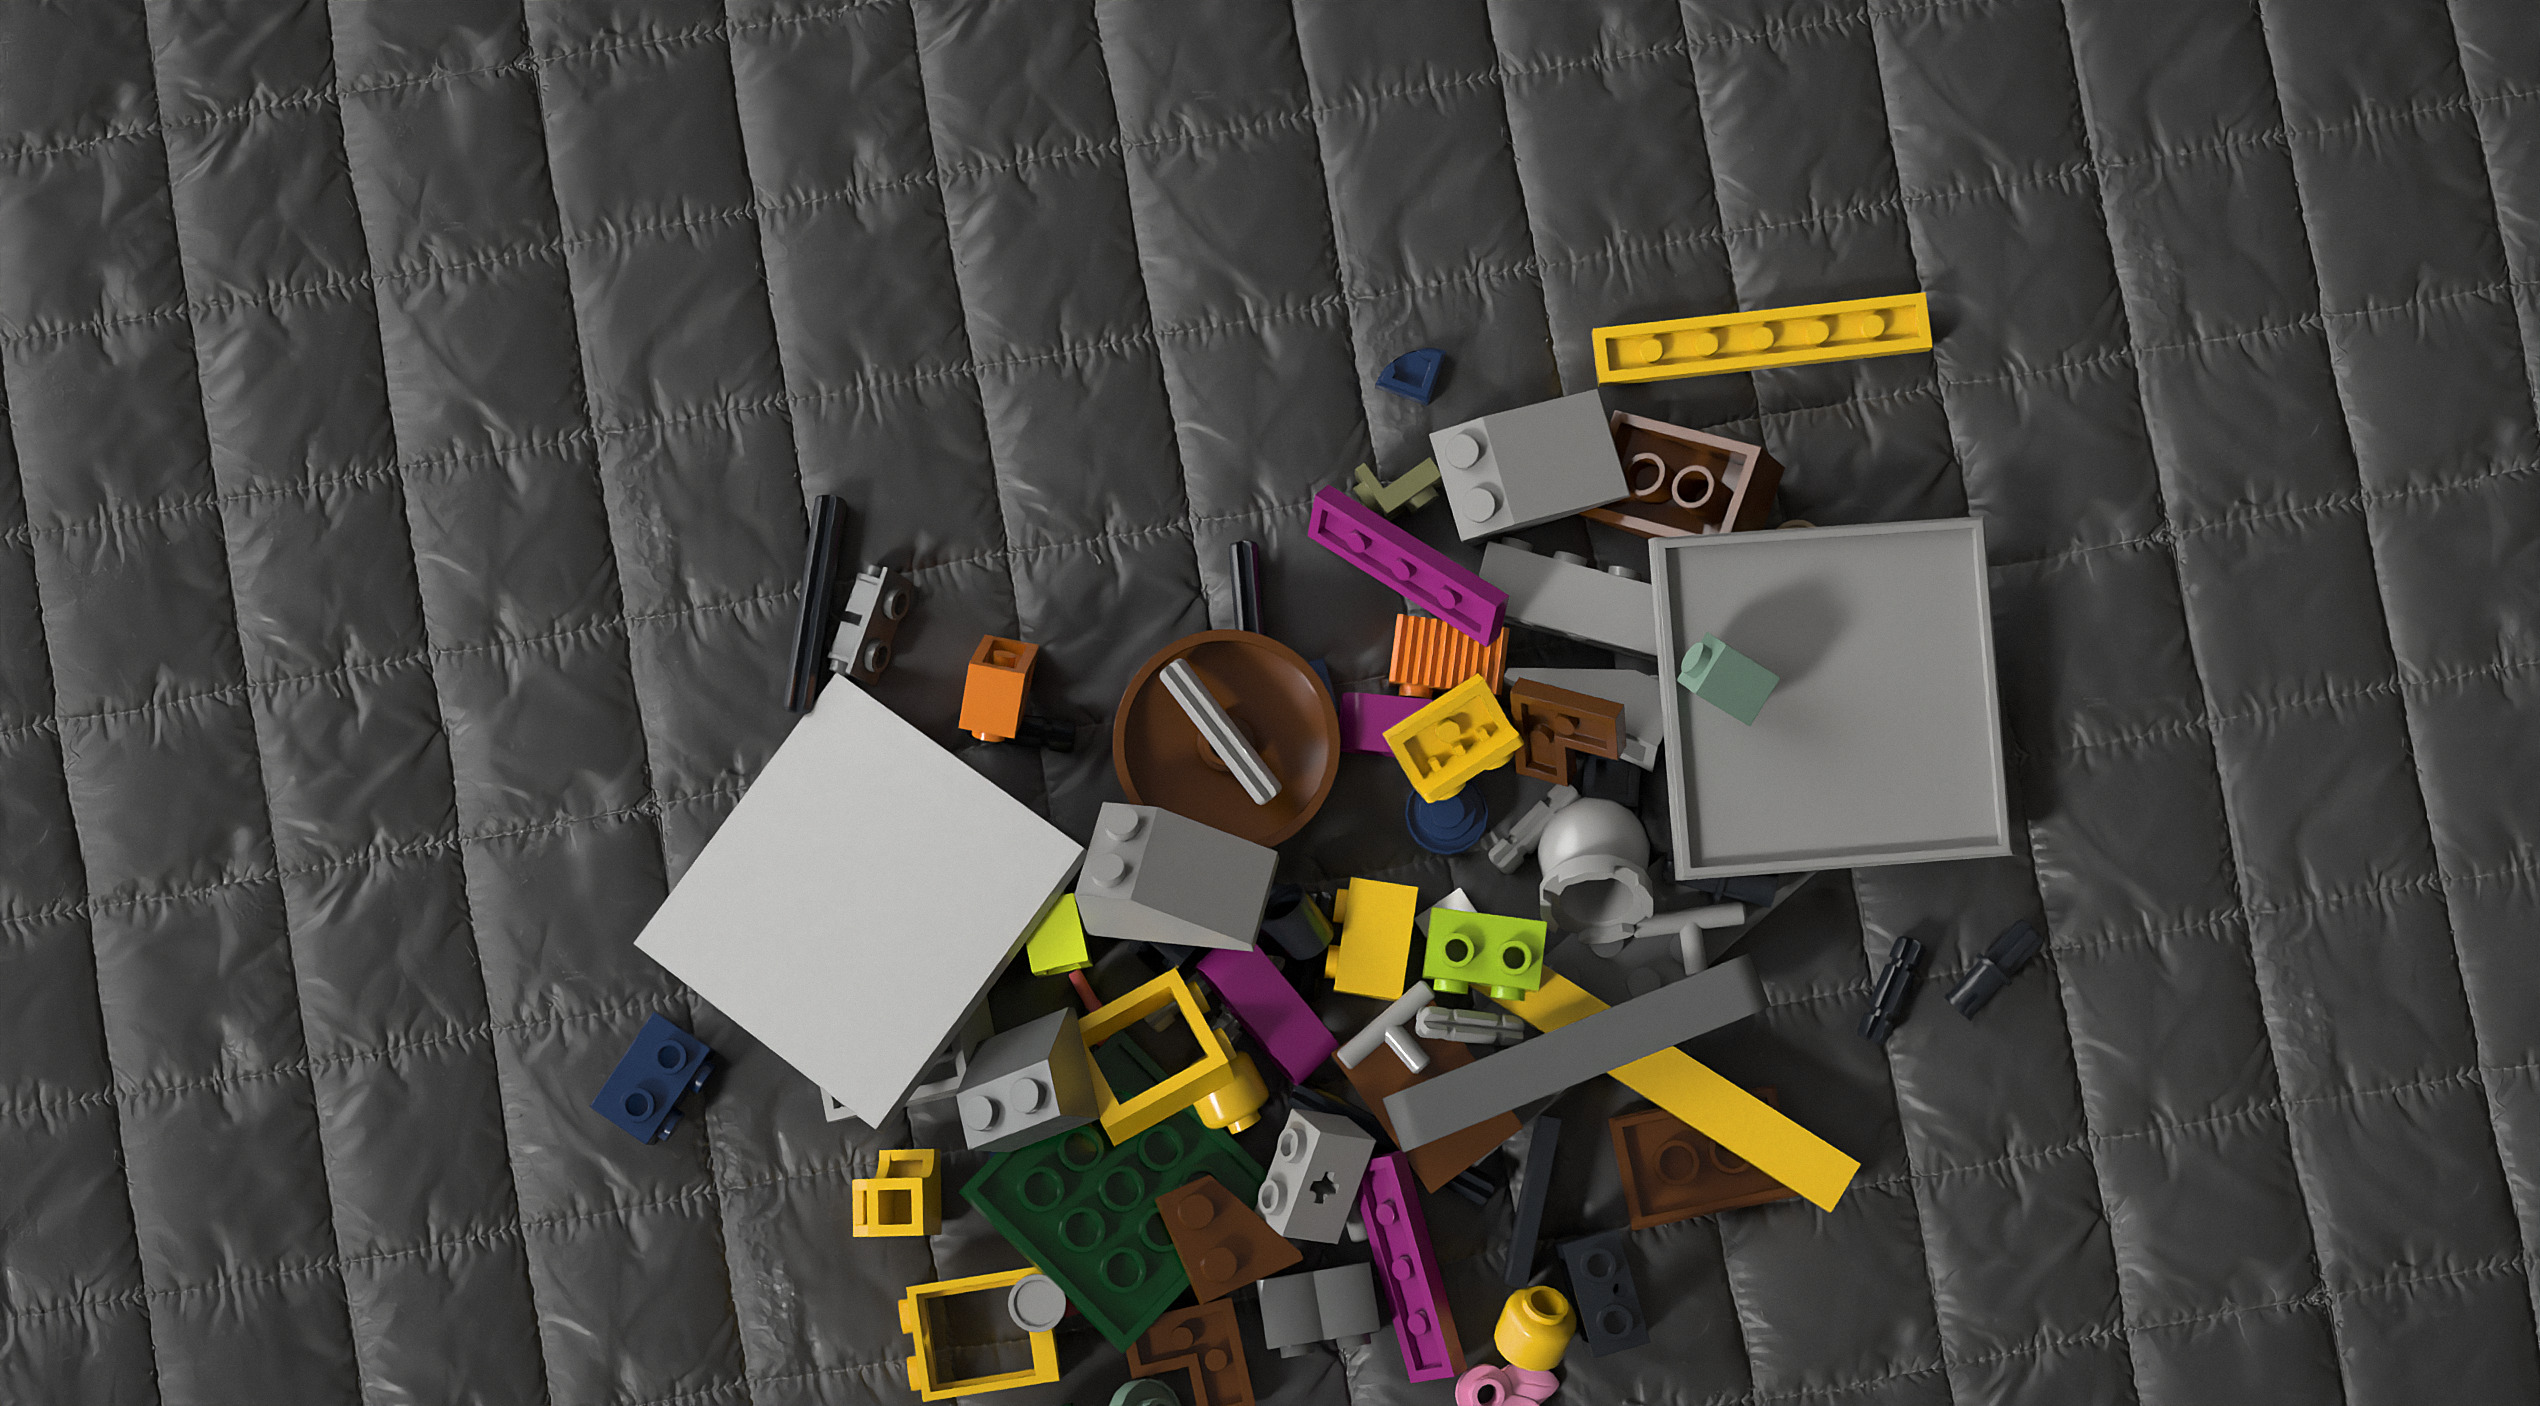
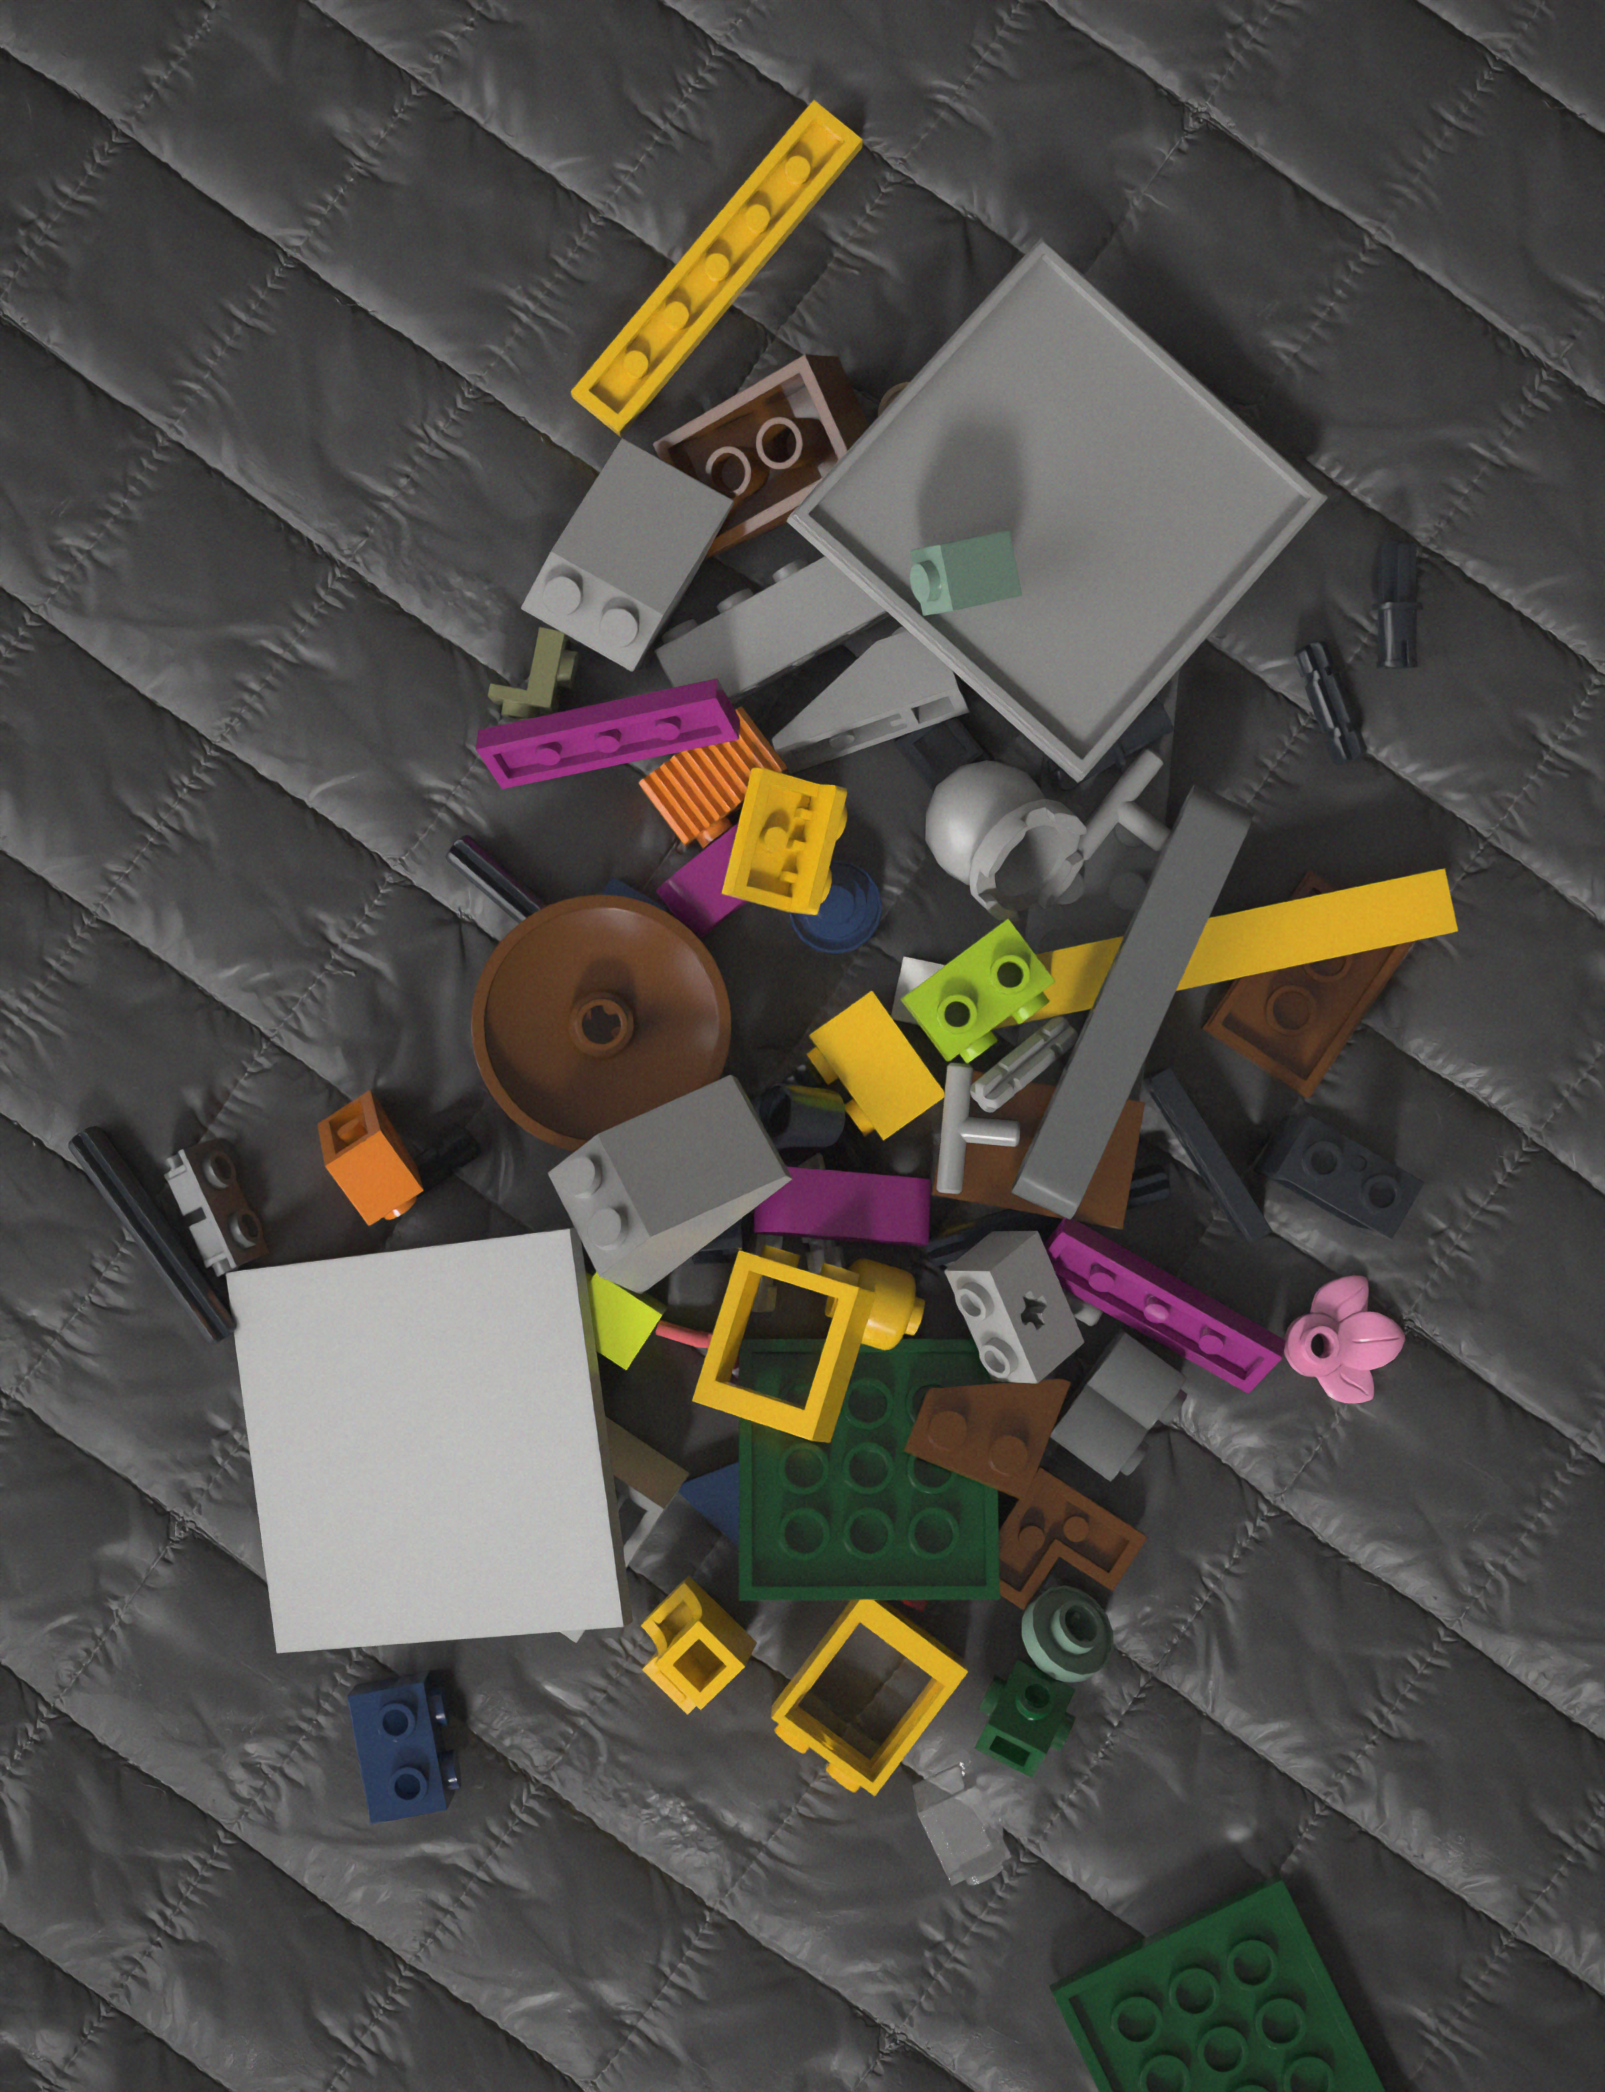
camera: 50 degrees left, 5 degrees up
(1027, 1085) = (711, 1465): dark grey slope -> none
(1036, 1303) = (890, 1629): light grey piece -> none
(1220, 731) = (587, 1020): light grey axle -> none
(1413, 374) = (460, 573): dark blue tile -> none
(1527, 833) = (915, 855): light grey axle -> none
(1535, 1328) = (1309, 1255): yellow head -> none
(1557, 723) = (857, 746): reddish brown plate -> none

